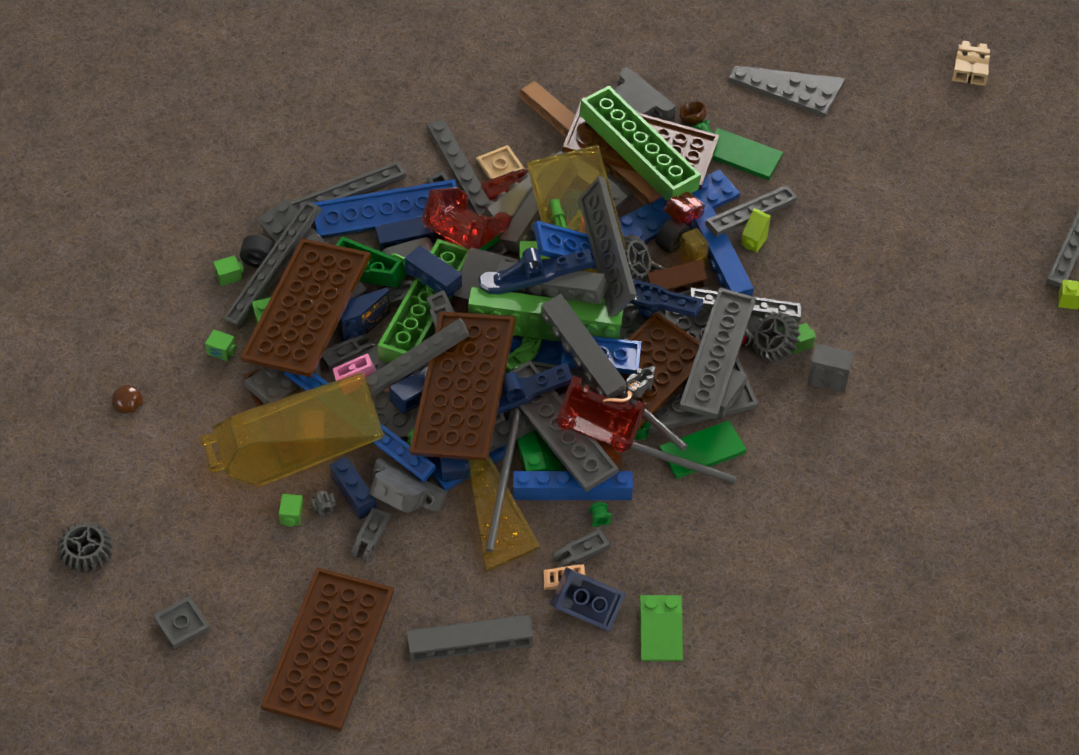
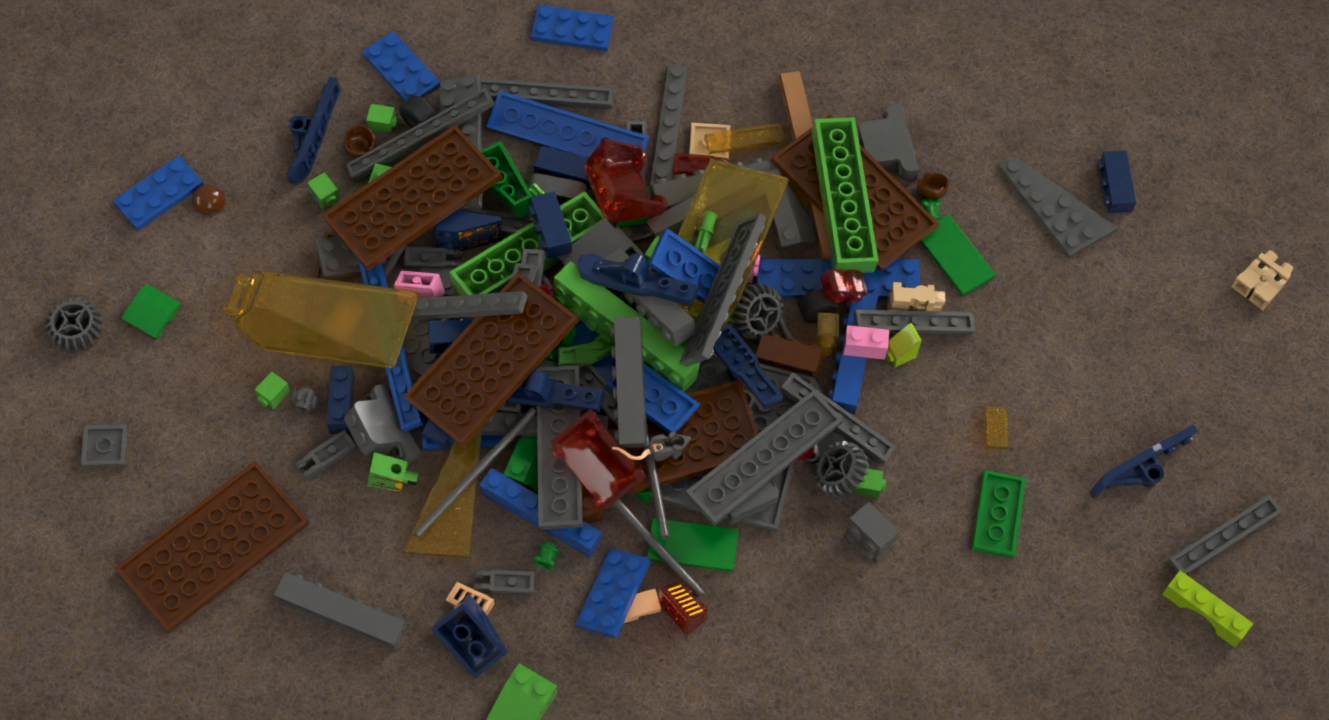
camera: 30 degrees right, 10 degrees up
(79, 415) = (158, 193): none -> blue plate
(143, 504) = (151, 311): none -> green slope
(174, 308) = (309, 132): none -> dark blue piece
(213, 228) = (400, 67): none -> blue plate
(222, 294) = (359, 140): none -> reddish brown hair
(330, 134) = (572, 28): none -> blue plate
(433, 519) = (389, 473): none -> bright green torso
(526, 148) = (744, 138): none -> clear yellow tile
(670, 512) = (613, 593): none -> blue plate
(693, 513) = (643, 604): none -> light nougat slope
(730, 239) = (866, 342): none -> bright pink brick
(730, 494) = (682, 607): none -> clear red slope
(744, 191) = (915, 299): none -> tan hips
(822, 47) = (1116, 182): none -> dark blue brick
(862, 255) = (996, 428): none -> clear yellow plate
(906, 312) = (998, 514): none -> green tile
(986, 227) = (1137, 468): none -> dark blue piece

